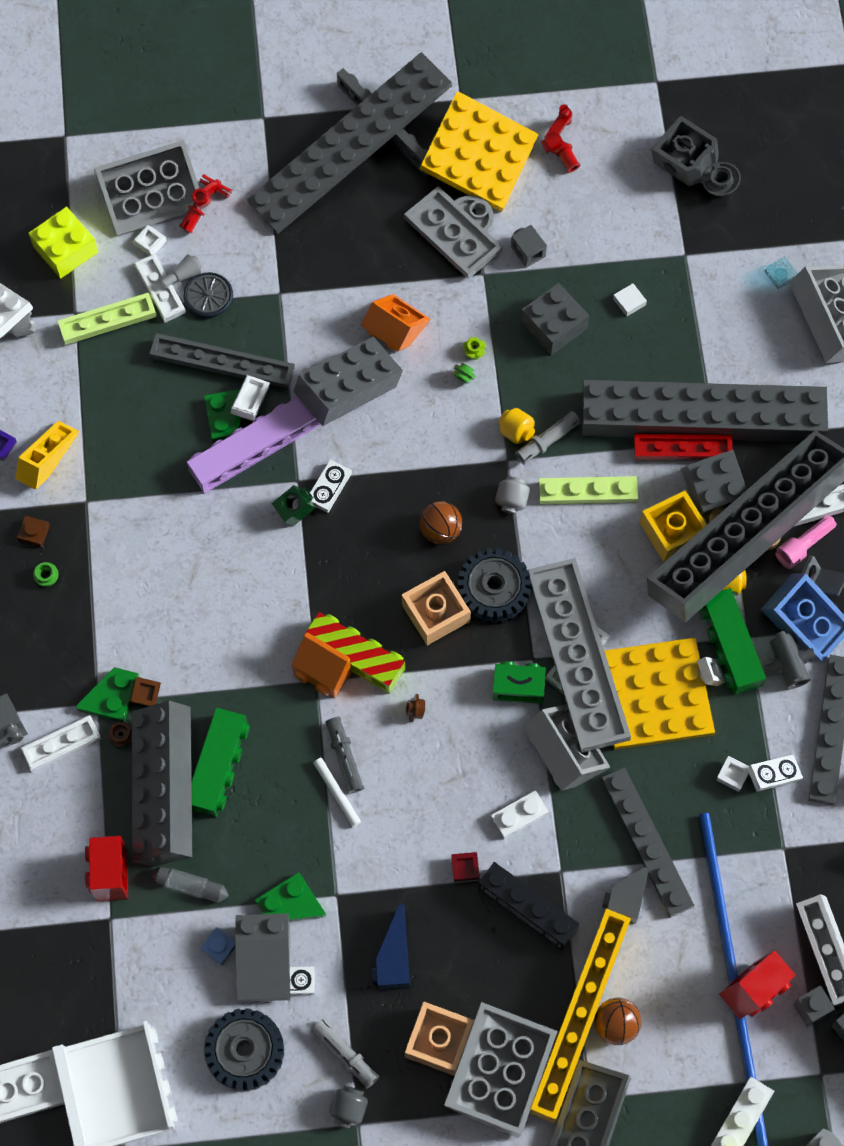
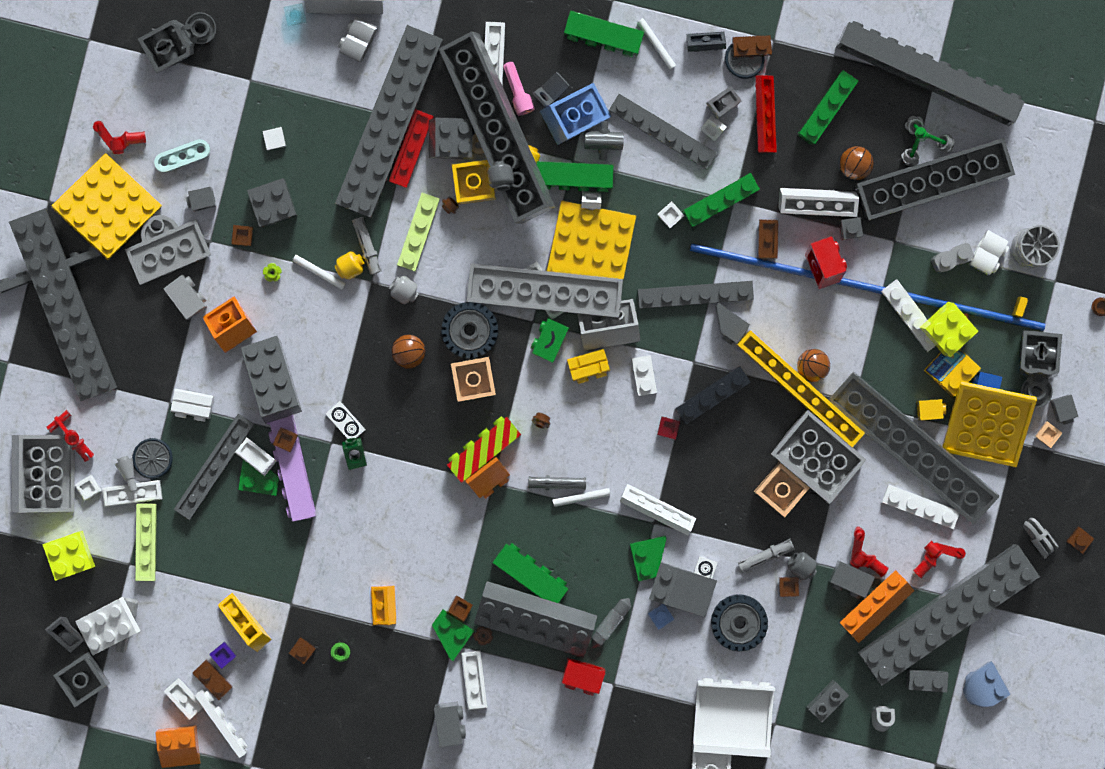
camera: 70 degrees left, 20 degrees up
(120, 605) = (383, 605): none -> light orange slope
(282, 417) = (285, 439): none -> reddish brown plate
(287, 313) = (192, 404): none -> white brick
(314, 1098) = (788, 586): none -> reddish brown plate
(355, 890) = (657, 509): none -> white plate
(392, 959) = (715, 501): dark blue slope -> none
(408, 266) = (185, 297): none -> light grey brick
(463, 373) = (291, 288): bright green plate -> none
(495, 398) = (319, 272): none -> white bar
(504, 301) = (242, 235): none -> reddish brown plate
(506, 740) = (588, 365): none -> yellow brick
(566, 203) = (173, 155): none -> light aqua plate
(633, 513) = (450, 205): none -> reddish brown plate
(696, 538) = (500, 176): none -> dark grey head
(755, 905) = (768, 239): none -> reddish brown plate
(774, 773) = (681, 186): tile -> none
(778, 827) = (721, 200): none -> green brick
(783, 346) = (358, 39): none -> light grey brick

